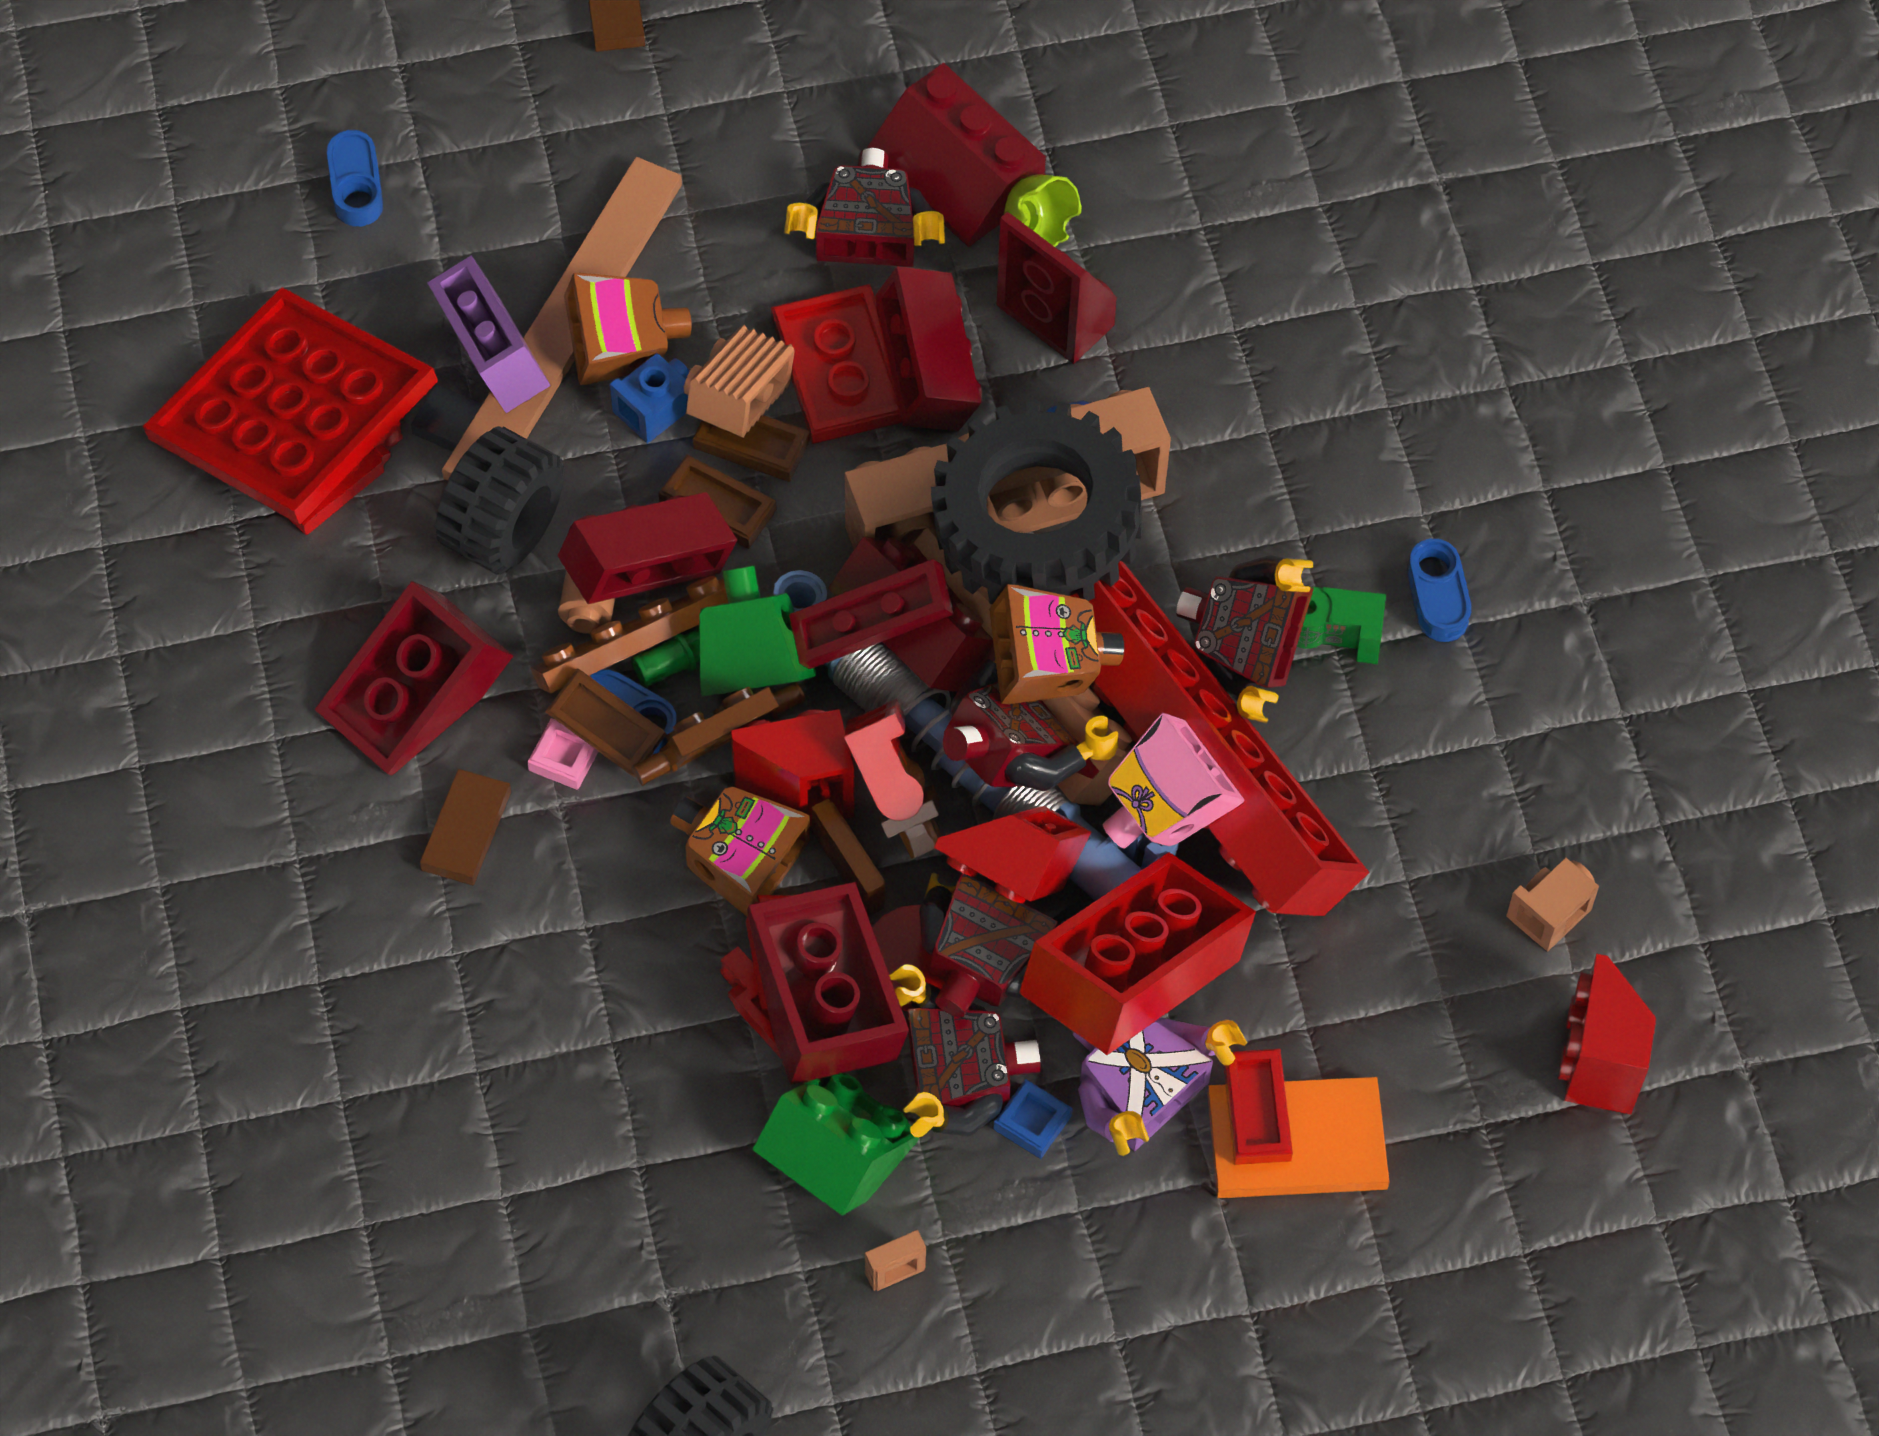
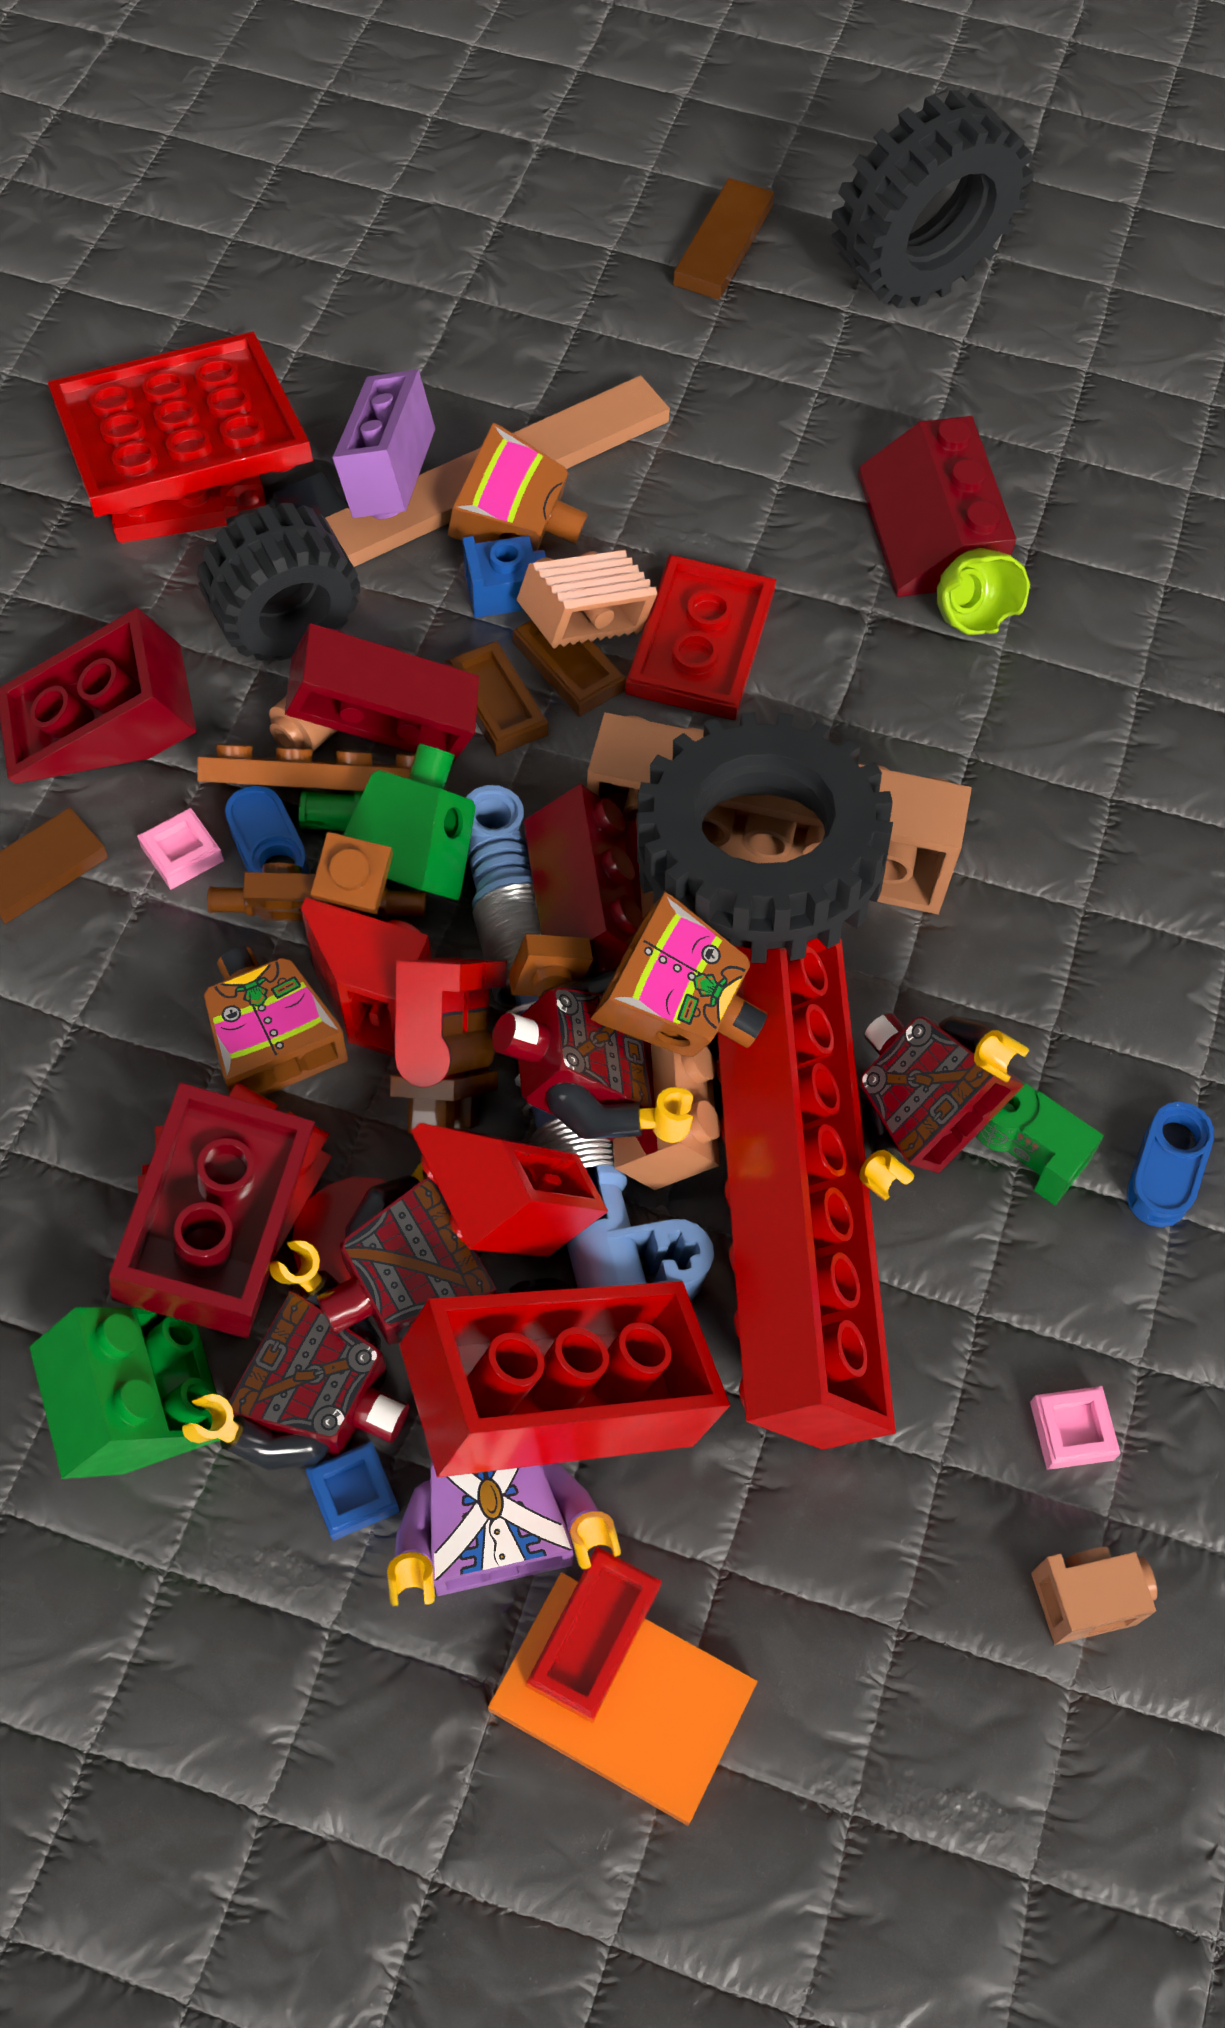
camera: 30 degrees right, 0 degrees up
(353, 169) = (393, 273): blue piece -> none
(605, 722) = (223, 829): reddish brown tile -> none
(755, 694) = (352, 873): none -> dark orange plate
(848, 855) = (361, 1097): reddish brown tile -> none
(867, 215) = (809, 515): torso -> none
(871, 614) = (532, 860): dark red plate -> none
(895, 1260) = (83, 1565): nougat tile -> none
(928, 349) = (789, 651): dark red brick -> none
(937, 684) = (547, 962): none -> dark orange plate
(1051, 292) = (942, 660): dark red slope -> none
(1168, 787) = (715, 1208): bright pink torso -> none
(1480, 806) = (1074, 1427): none -> bright pink tile
(1606, 1040) = (1059, 1820): red slope -> none

